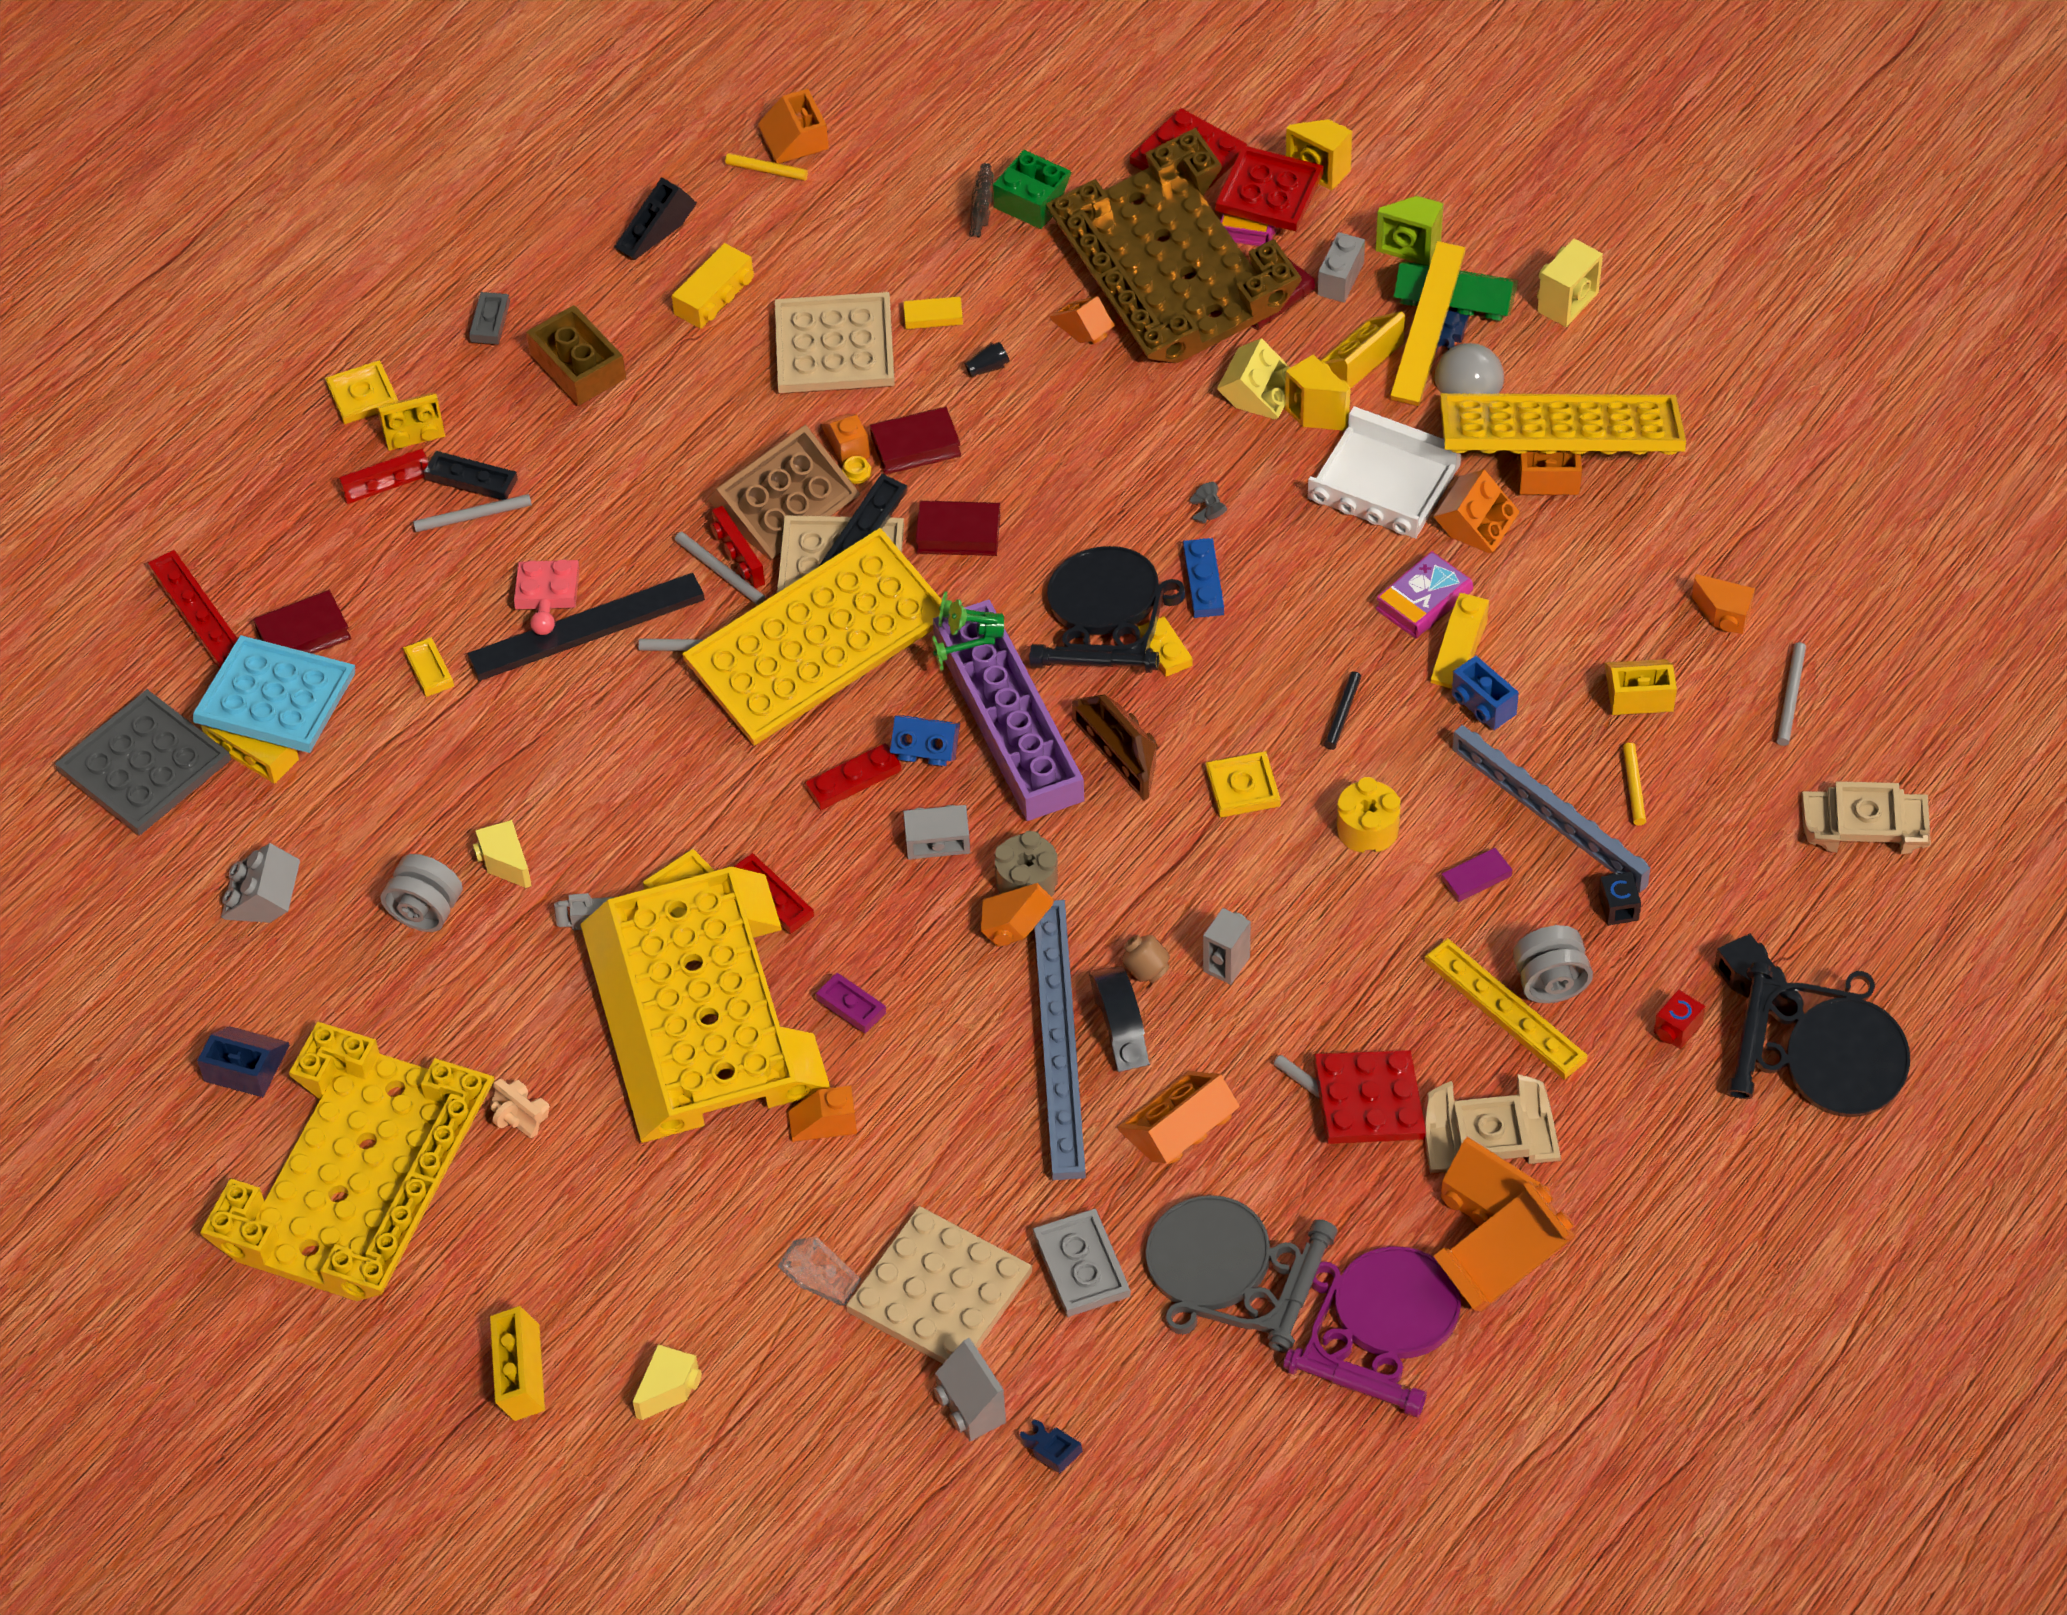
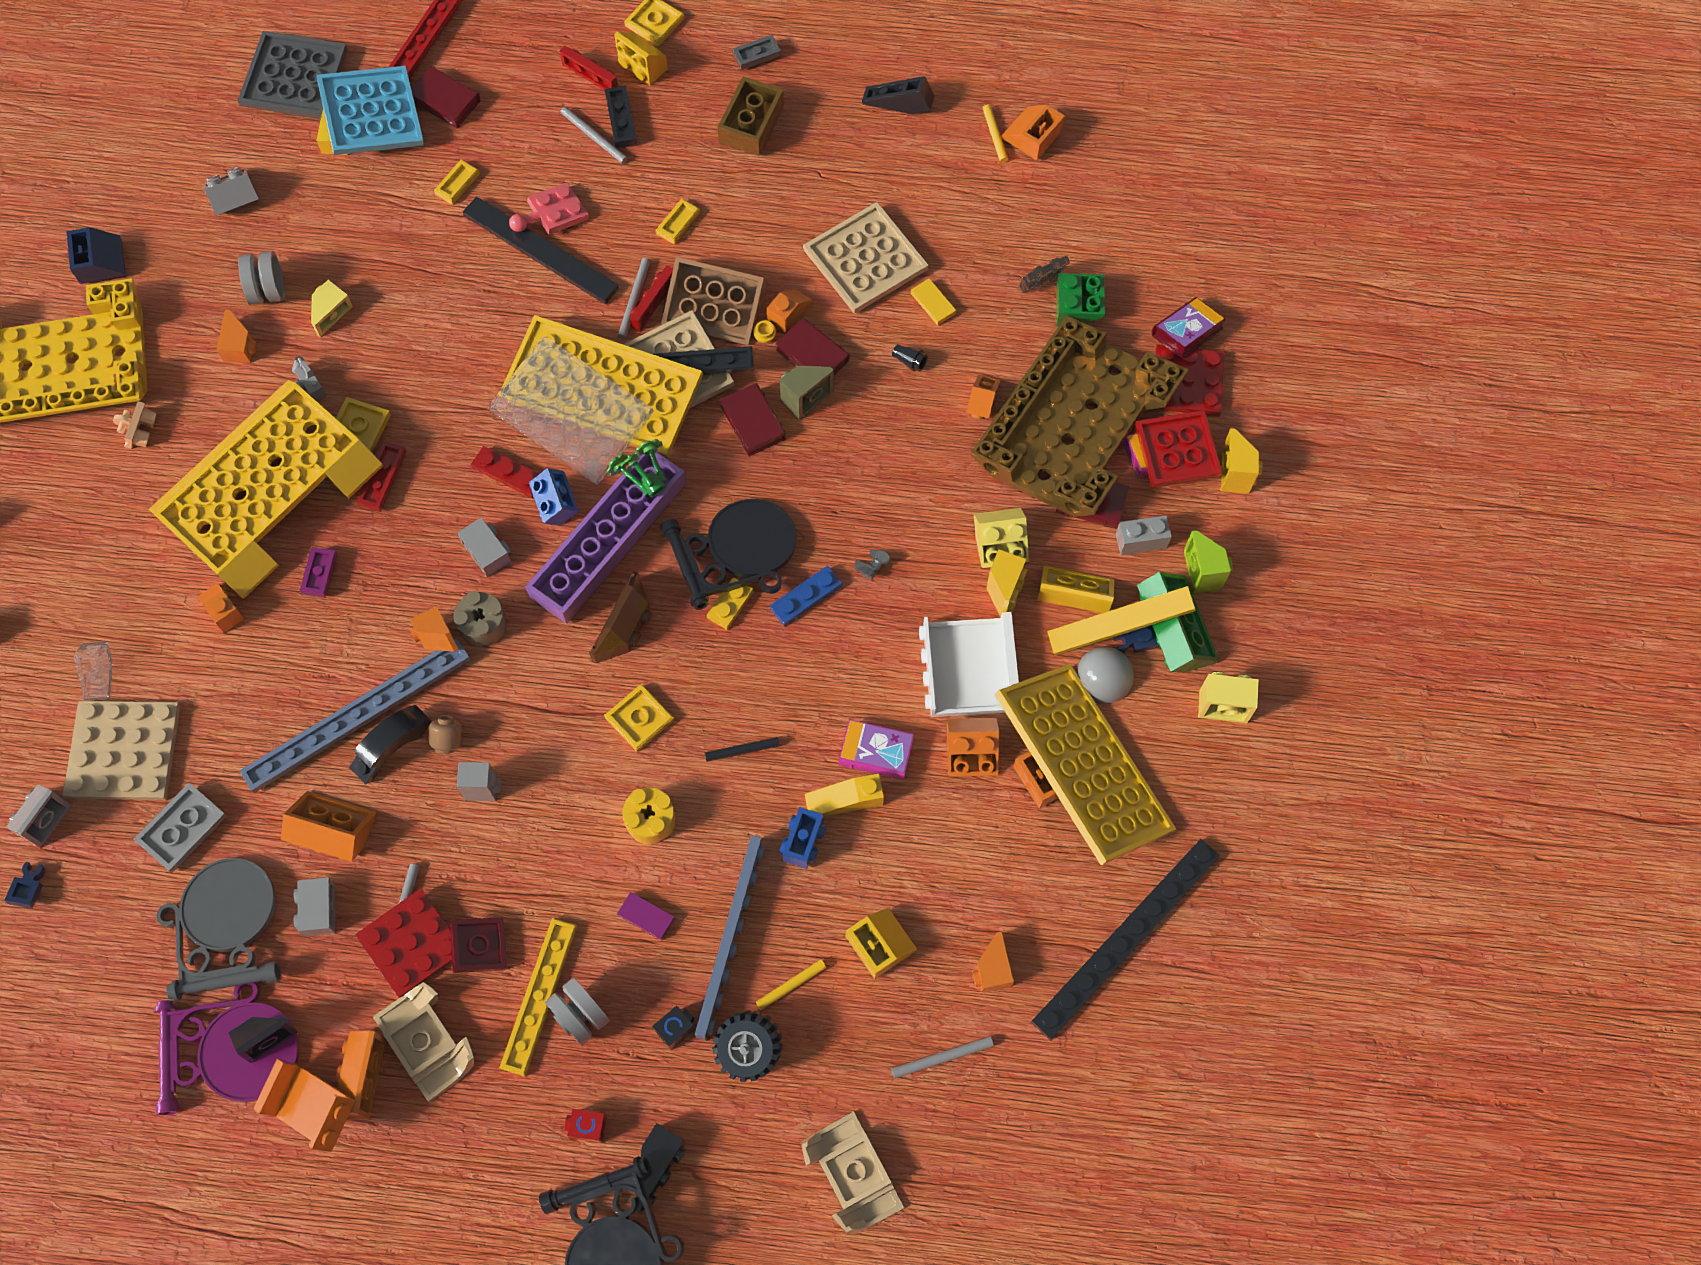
camera: 55 degrees right, 15 degrees up
(476, 961) = (234, 340): none -> orange slope
(651, 486) = (678, 221): none -> yellow tile
(667, 644) = (554, 306): light grey bar -> none
(712, 286) = (865, 160): yellow brick -> none
(828, 673) = (570, 409): none -> clear plate
(963, 459) = (806, 388): none -> olive slope
(1132, 118) = (1188, 327): none -> piece
(1269, 1165) = (315, 907): none -> light grey brick
(1395, 1260) = (260, 1036): none -> black slope
(1415, 1030) = (478, 945): none -> dark red plate
(1683, 835) = (747, 1045): none -> black wheel
(1762, 492) = (1124, 939): none -> black plate

